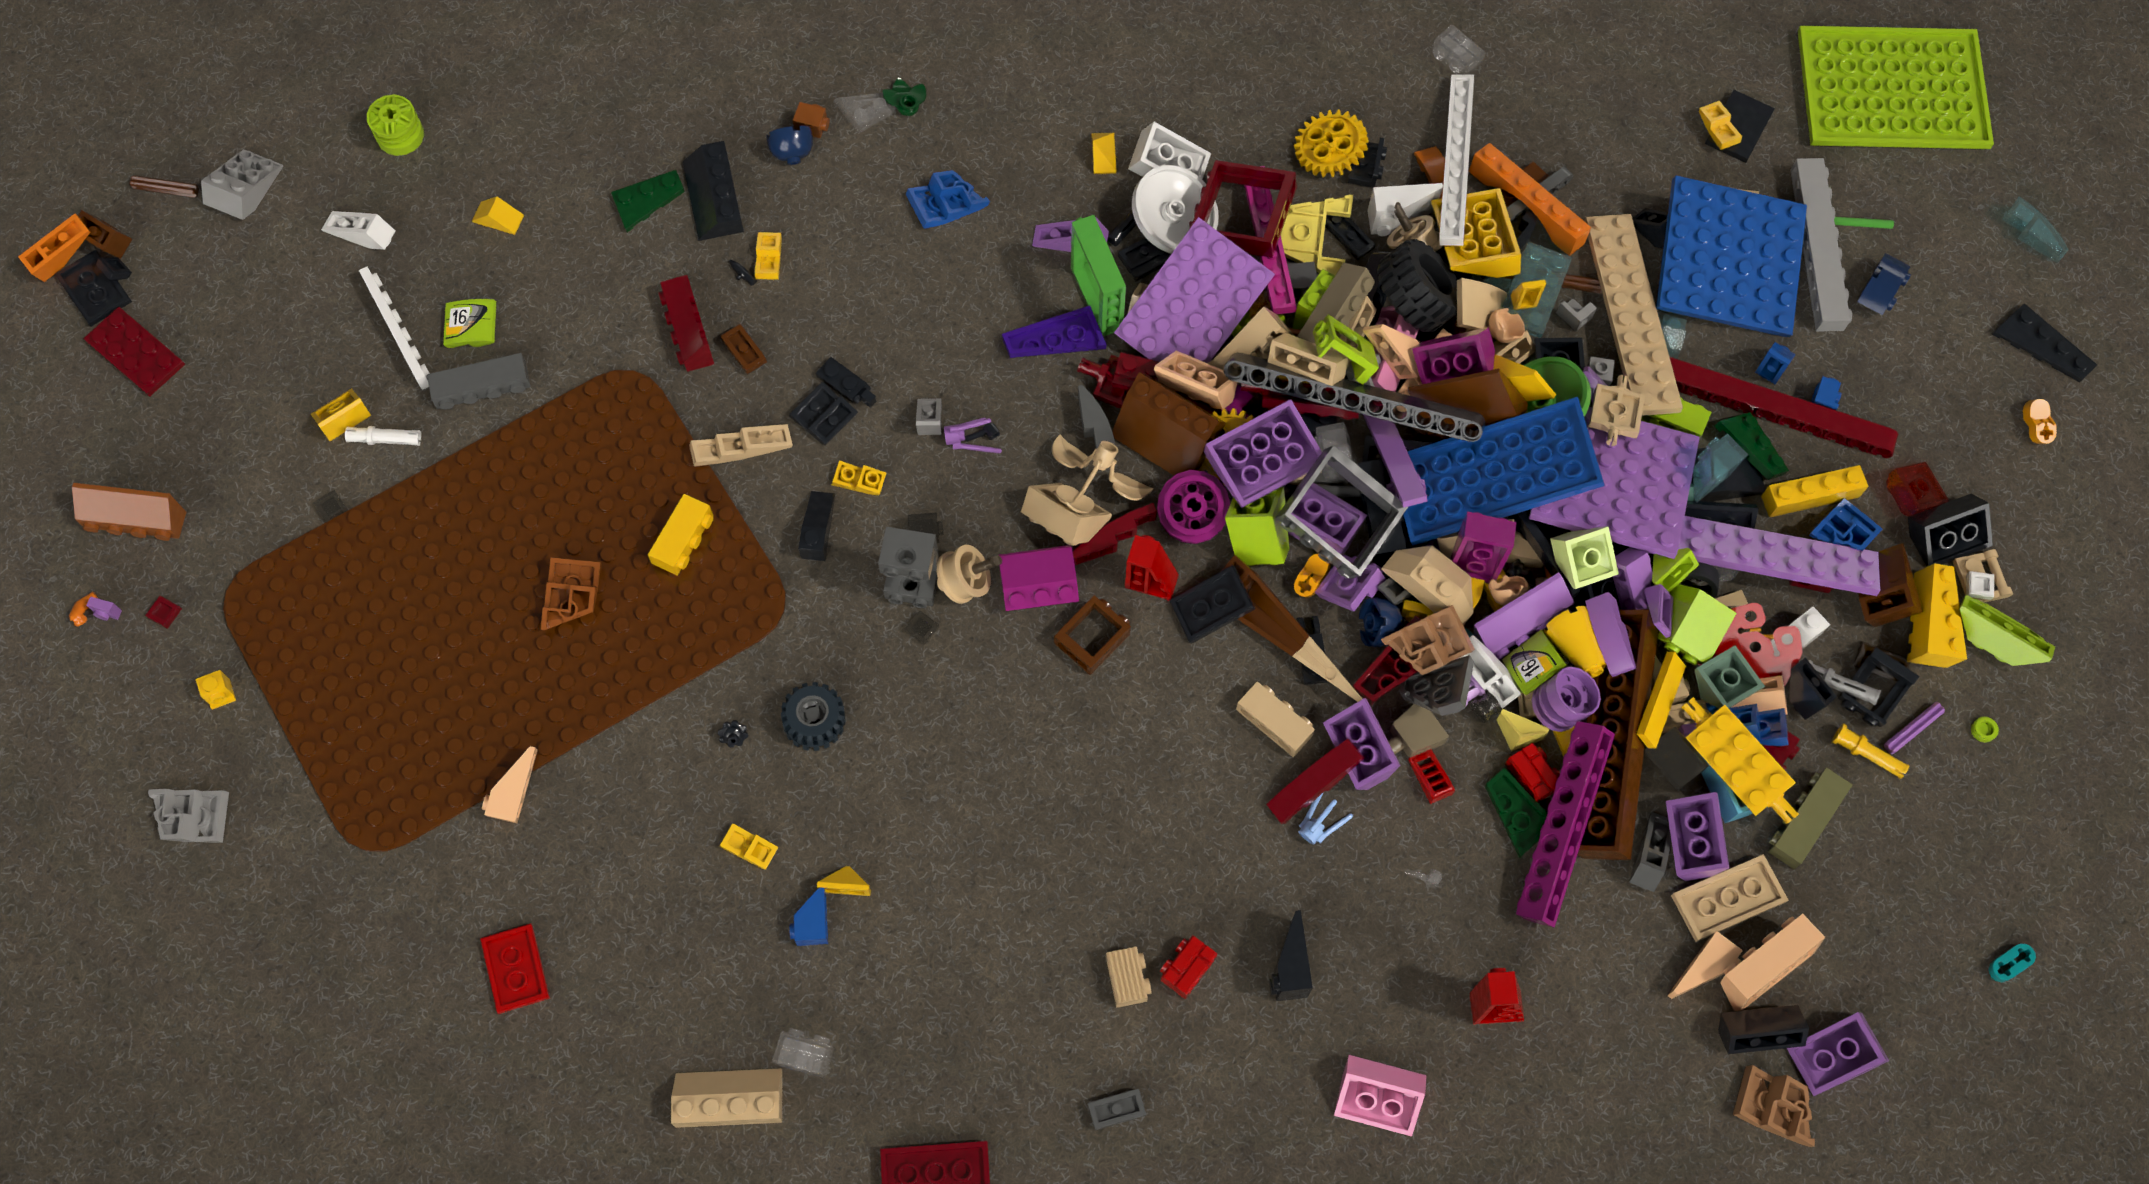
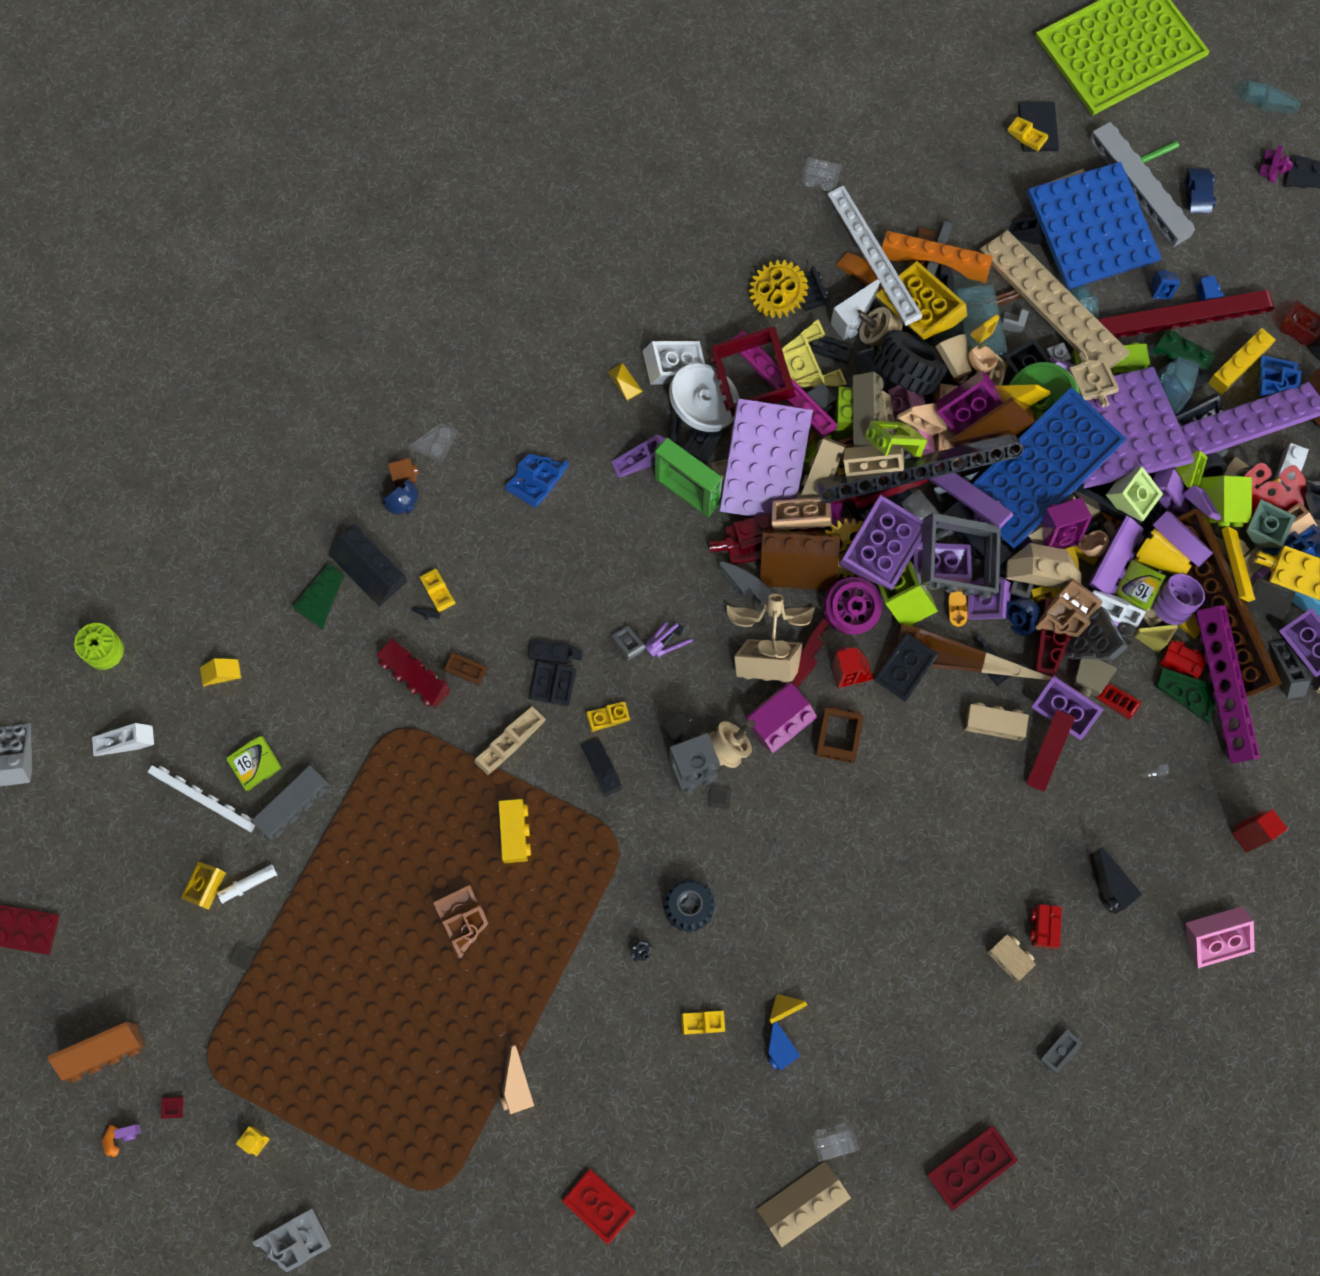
camera: 30 degrees left, 5 degrees up
(904, 95) = (456, 416): dark green plate -> none
(1061, 334) = (680, 532): dark purple wing -> none
(1312, 830) = (1068, 783): light blue plant -> none
(1997, 305) = (1278, 163): none -> magenta hips

